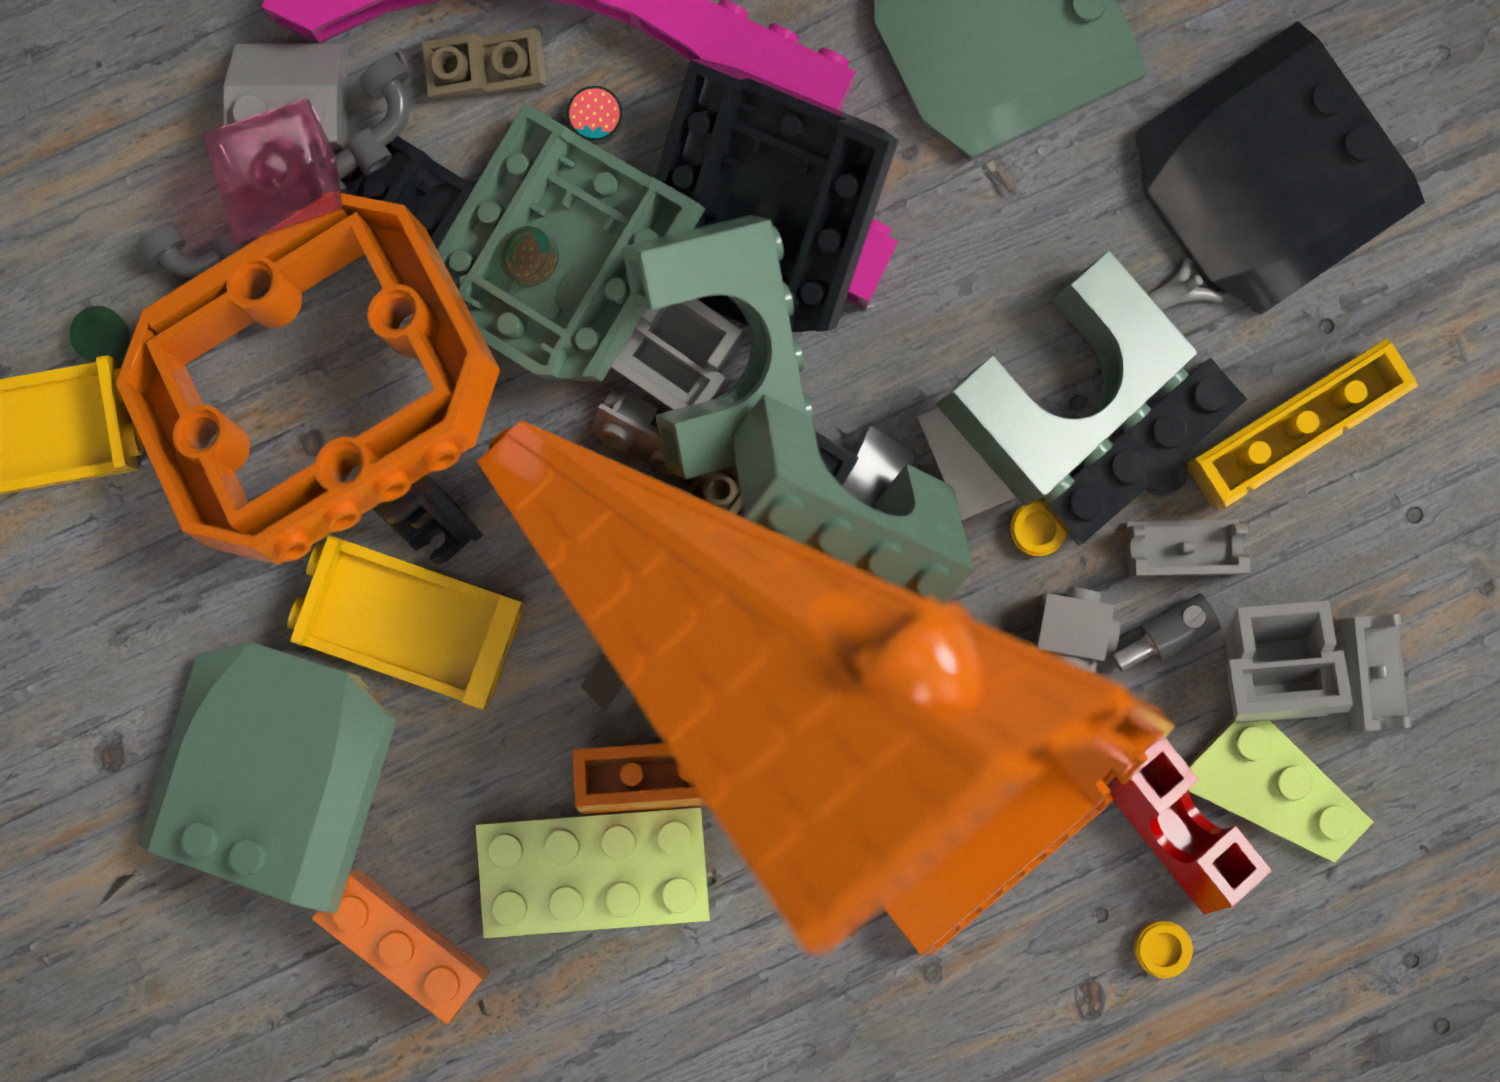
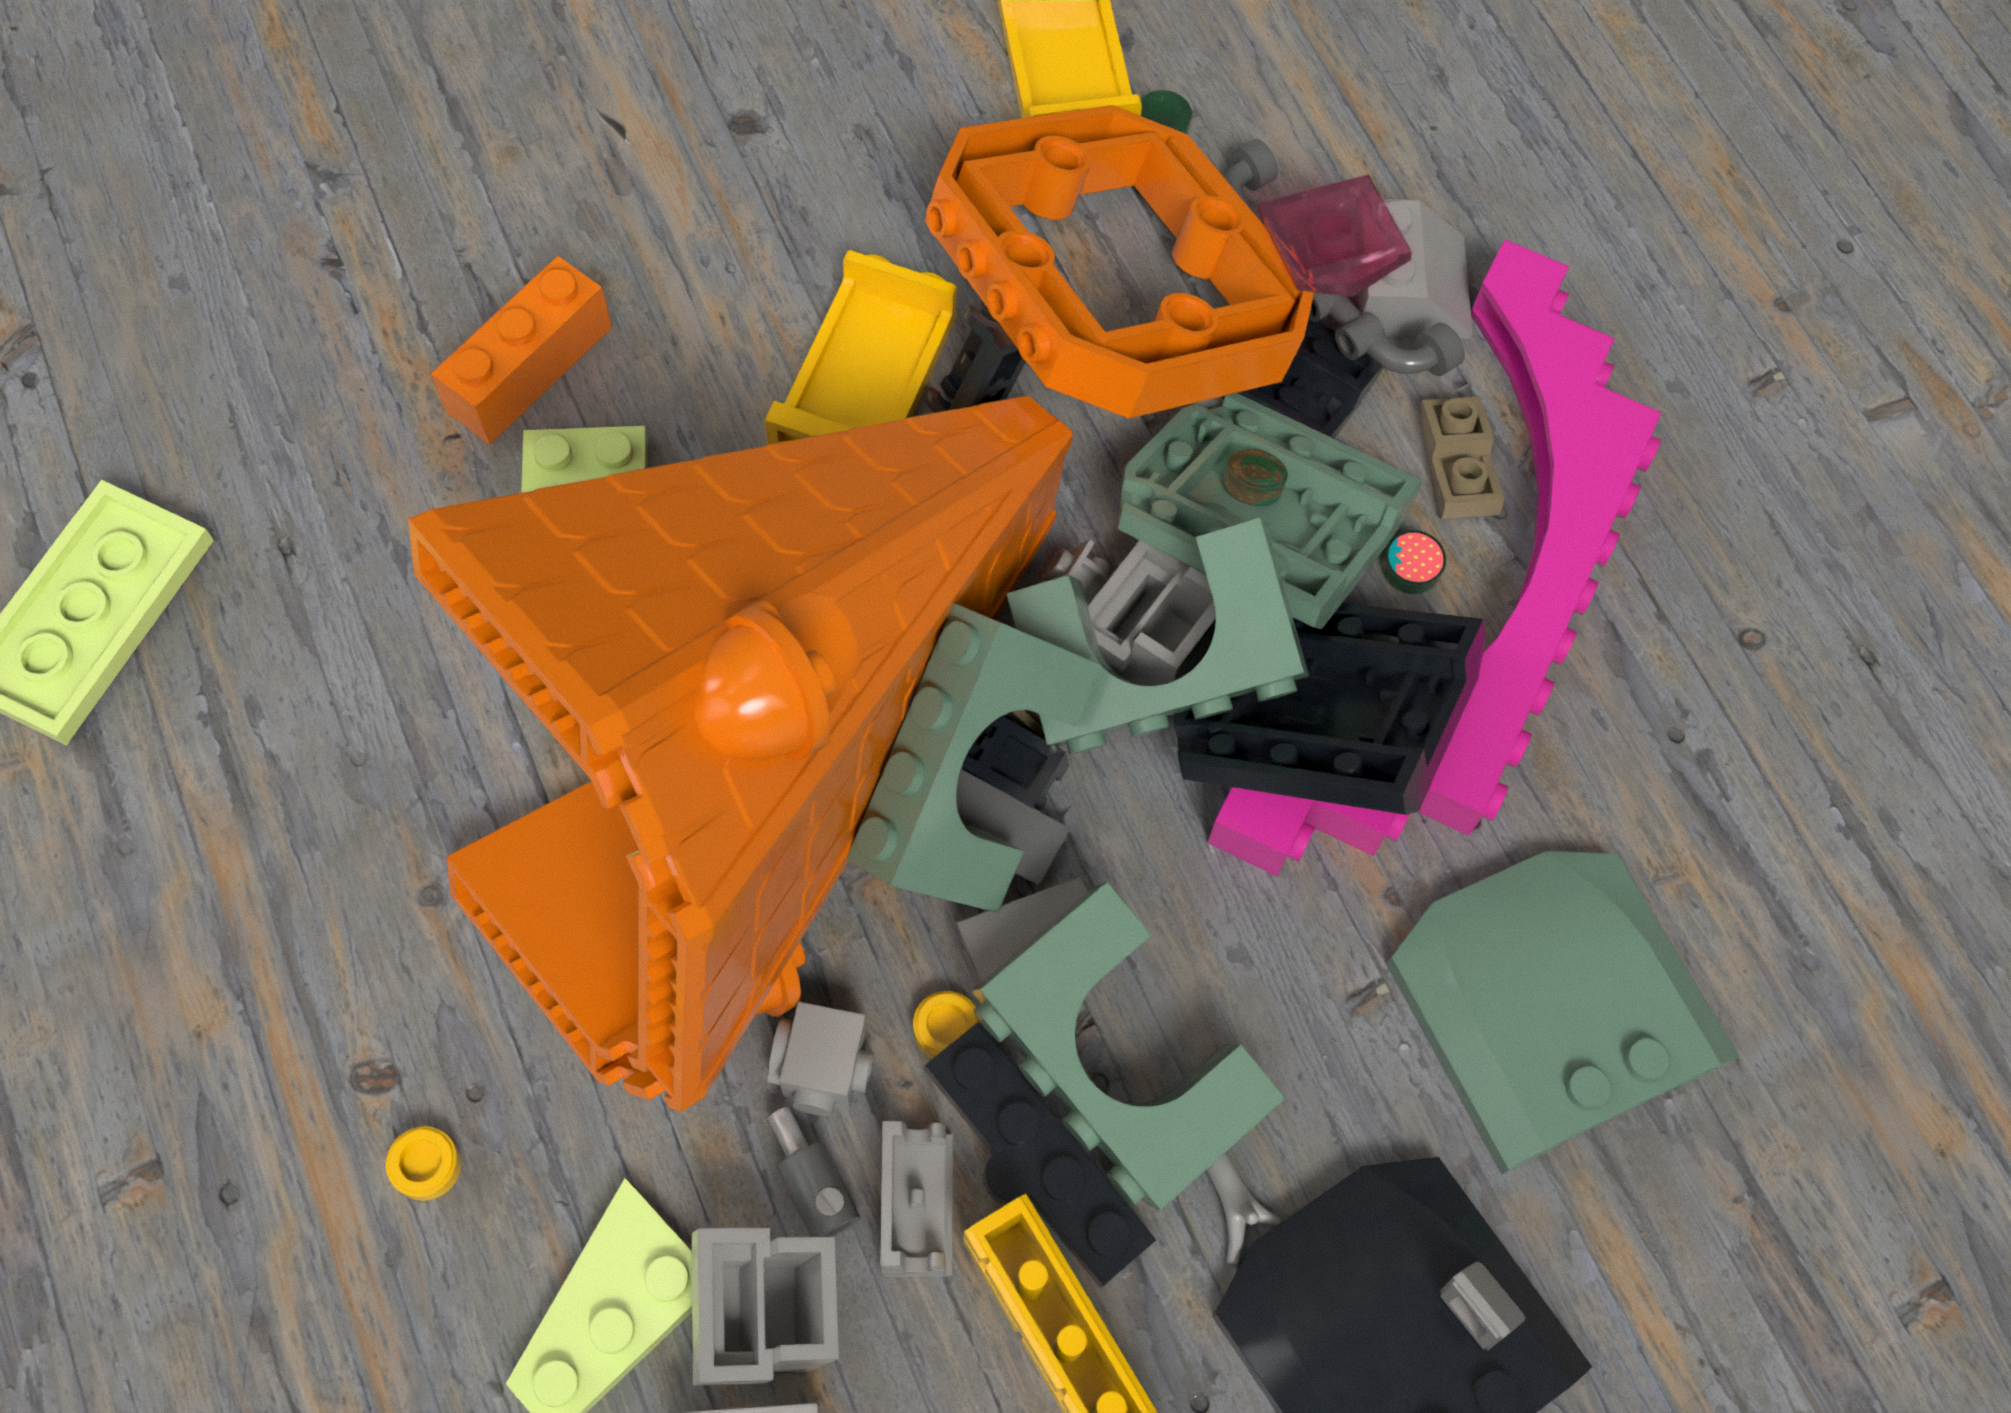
camera: 90 degrees right, 20 degrees down
(270, 774) = (706, 230): sand green wedge -> none
(1207, 861) = (564, 1178): red arch -> none
(1266, 101) = (1482, 1305): none -> light grey slope

